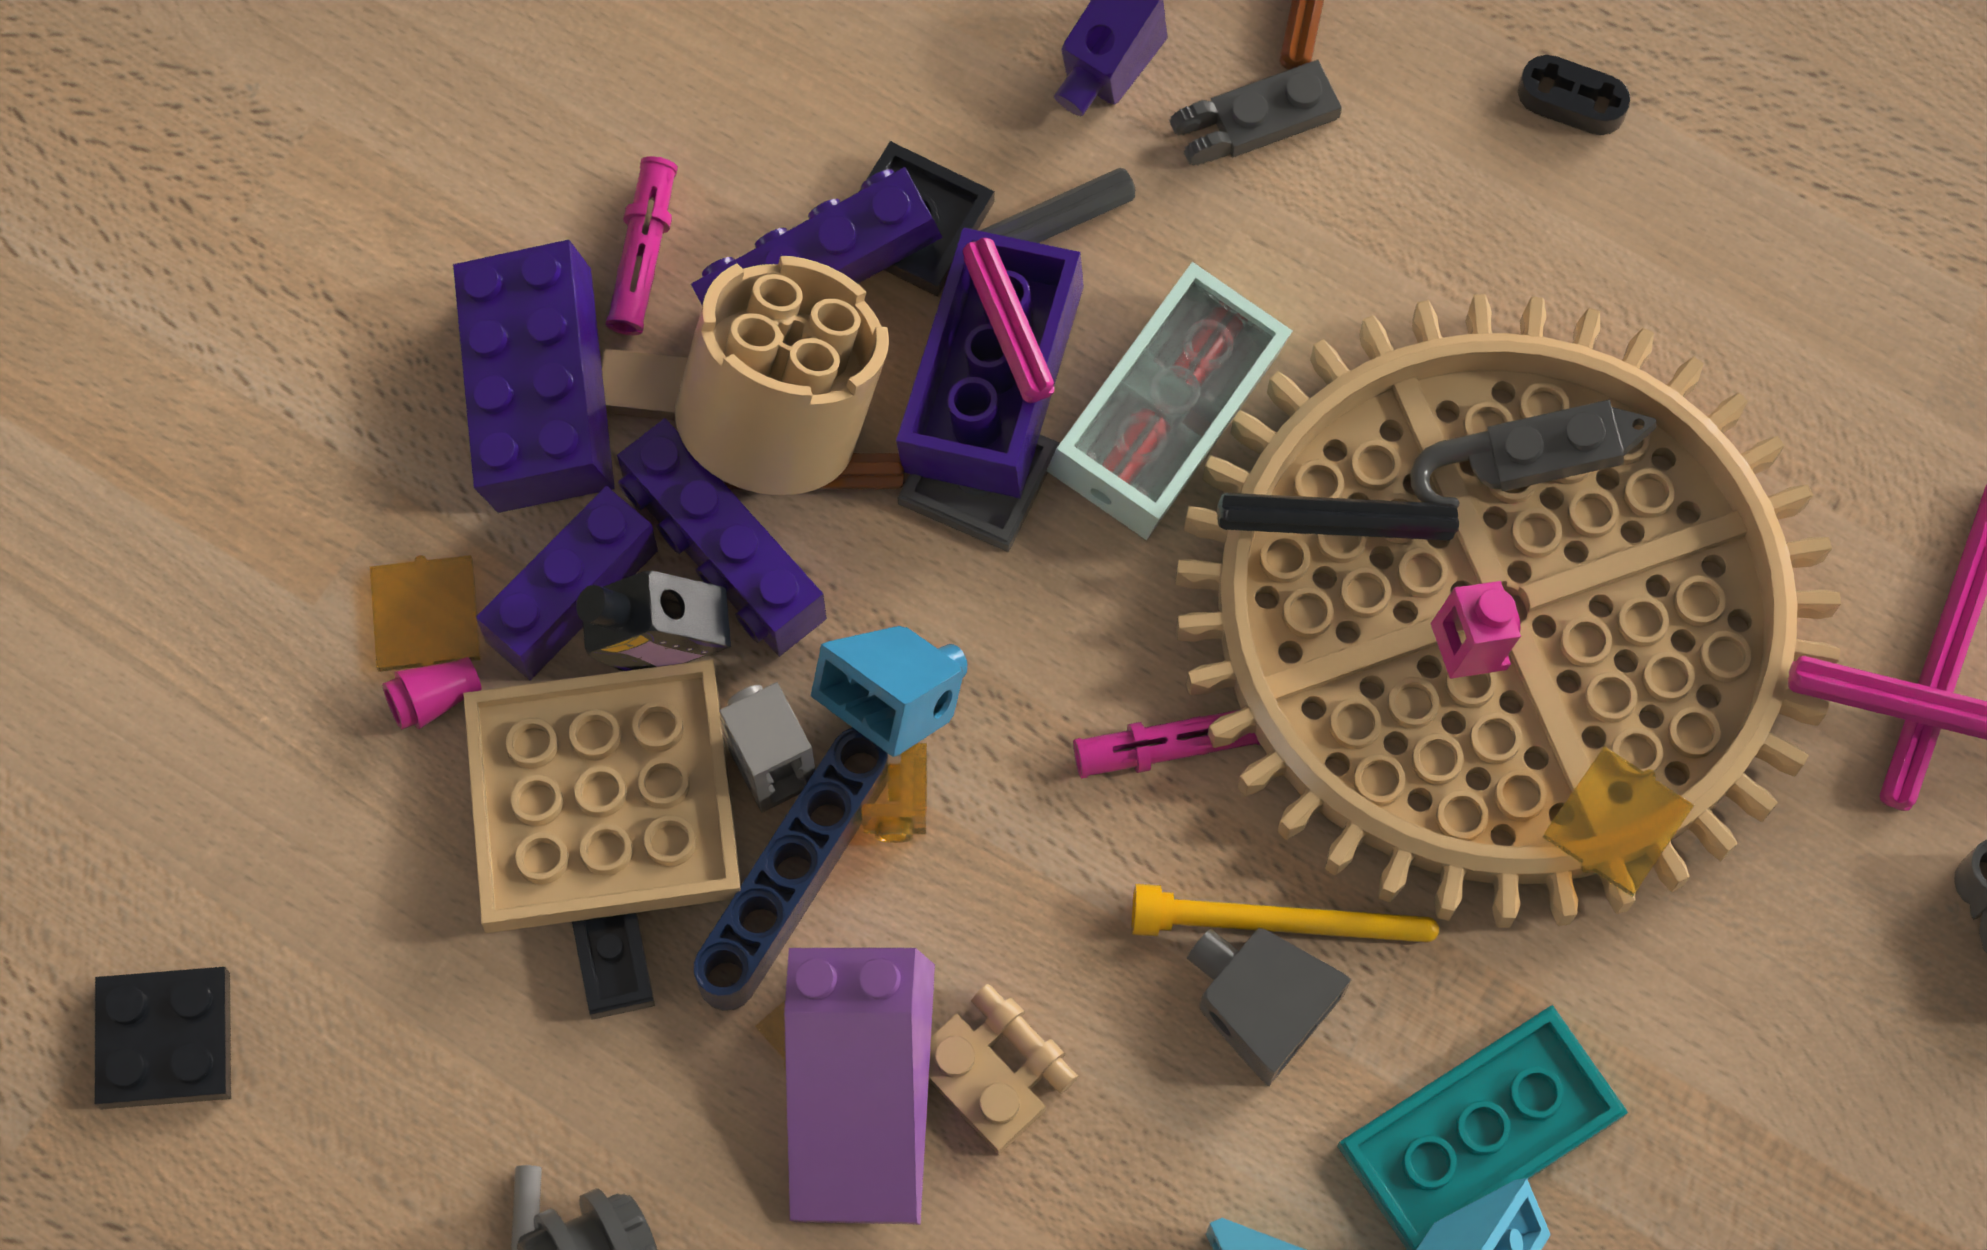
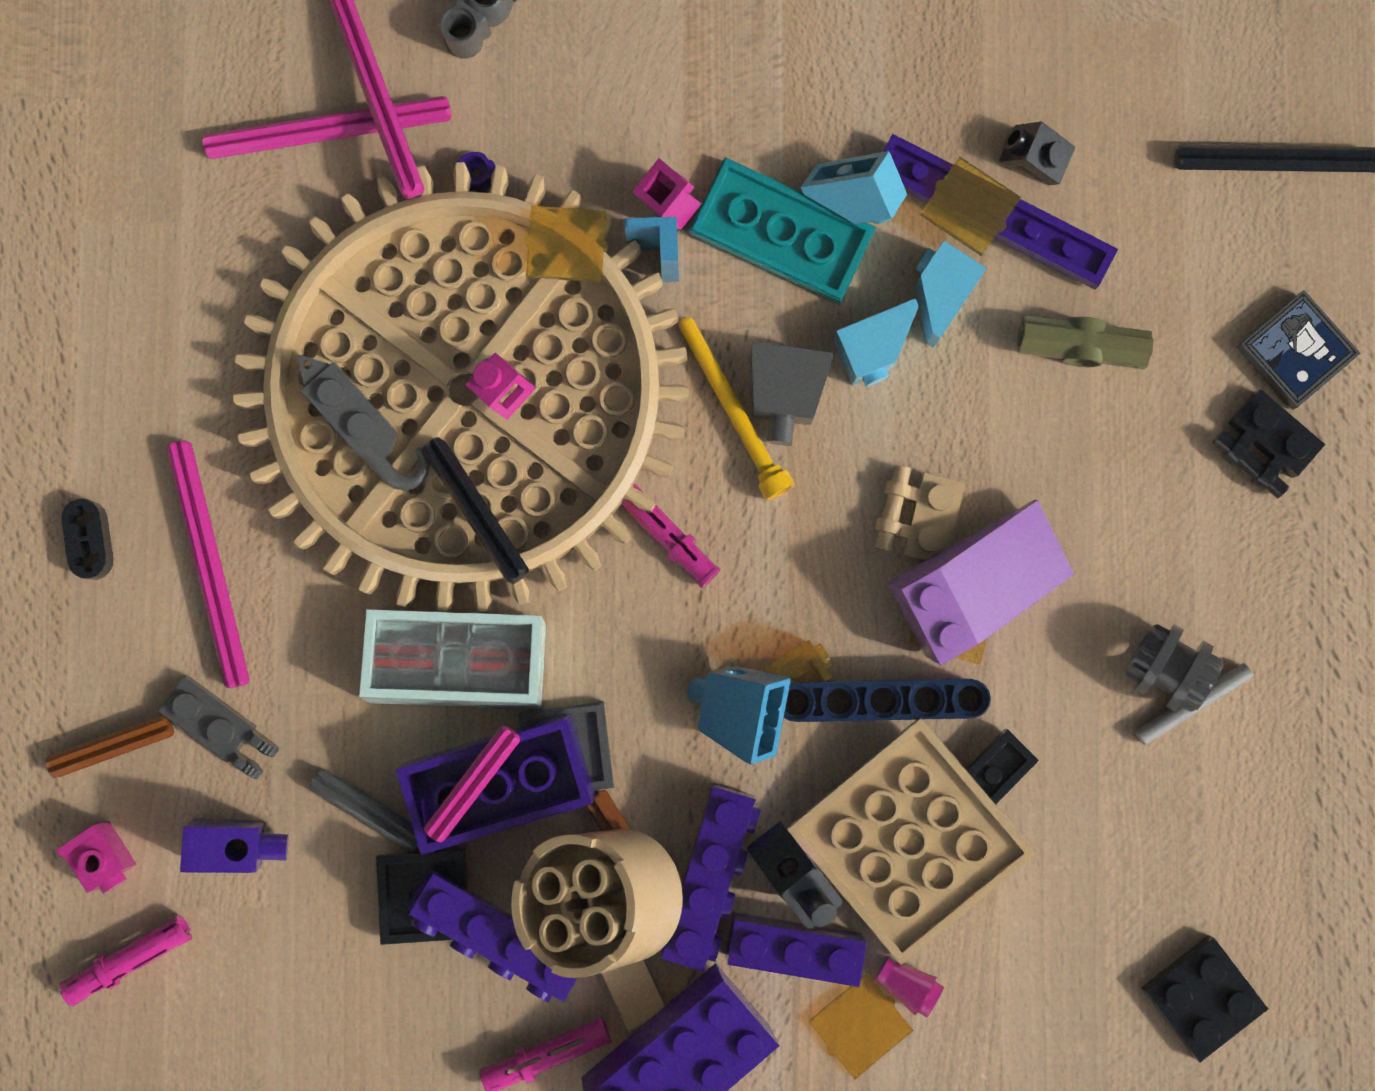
camera: 120 degrees left, 15 degrees up
(767, 744) = (825, 760): light grey brick -> none
(1254, 1147) = (874, 343): none -> medium azure slope
(1463, 205) = (208, 564): none -> dark pink axle
(1541, 946) = (657, 234): none -> dark azure panel
(1616, 1007) = (667, 193): none -> dark pink brick
(1804, 795) = (478, 161): none -> dark purple plate

